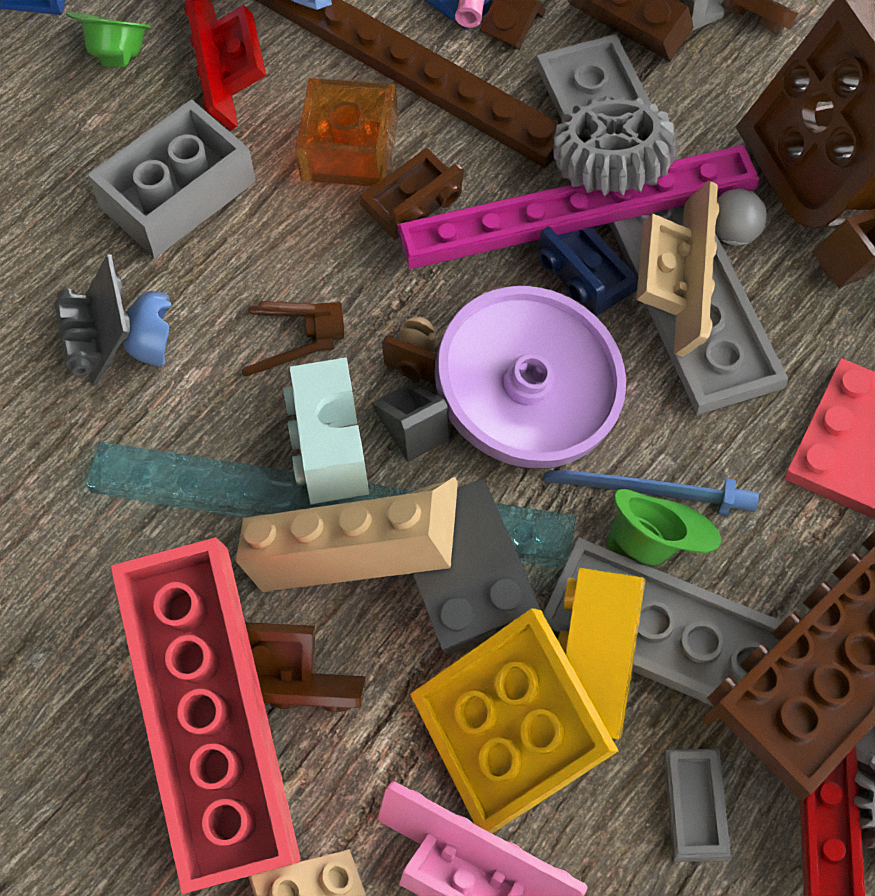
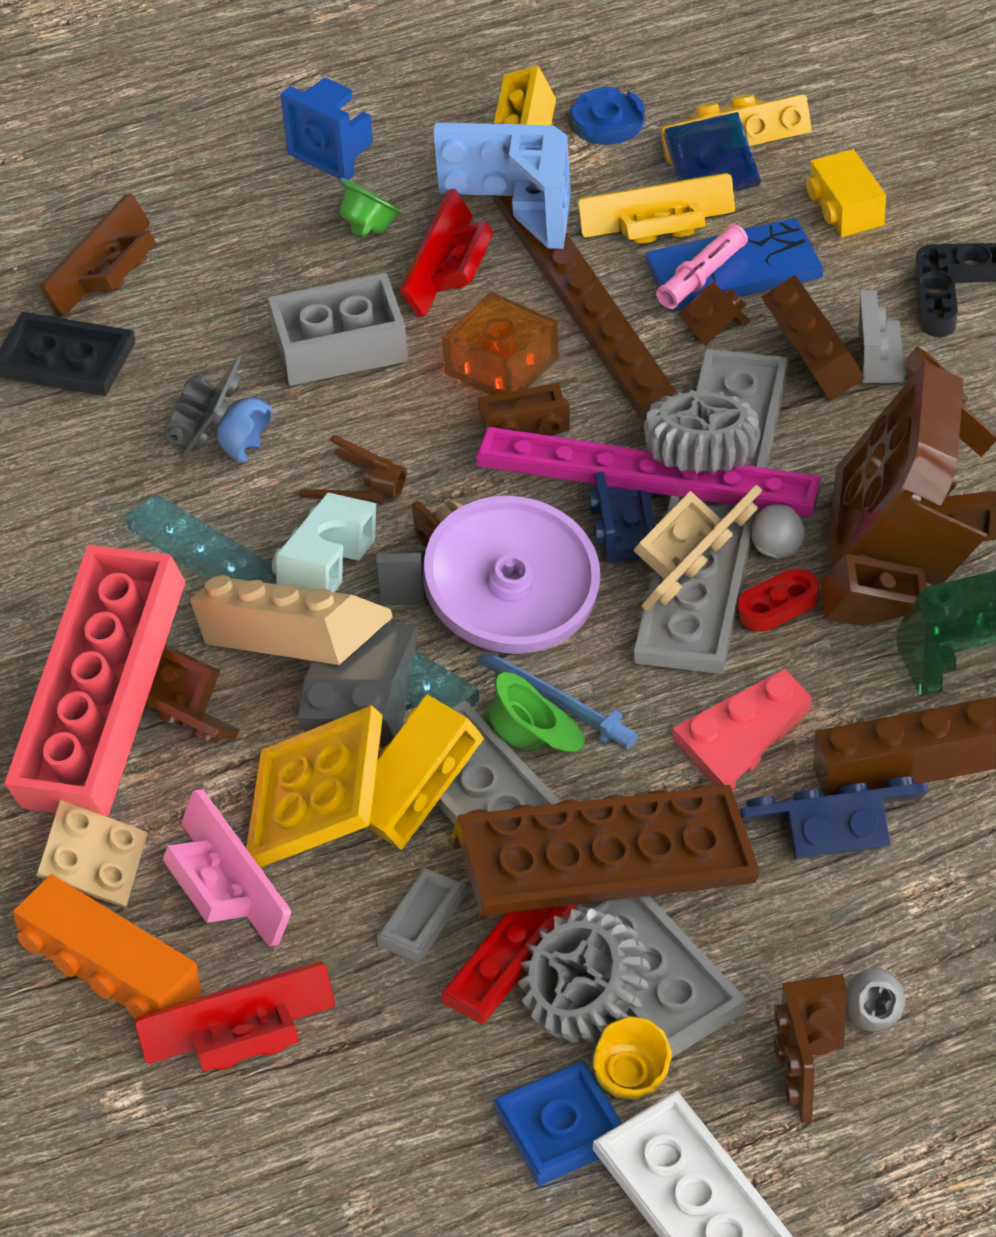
camera: 30 degrees right, 15 degrees down
(781, 290) = (774, 600): none -> red plate

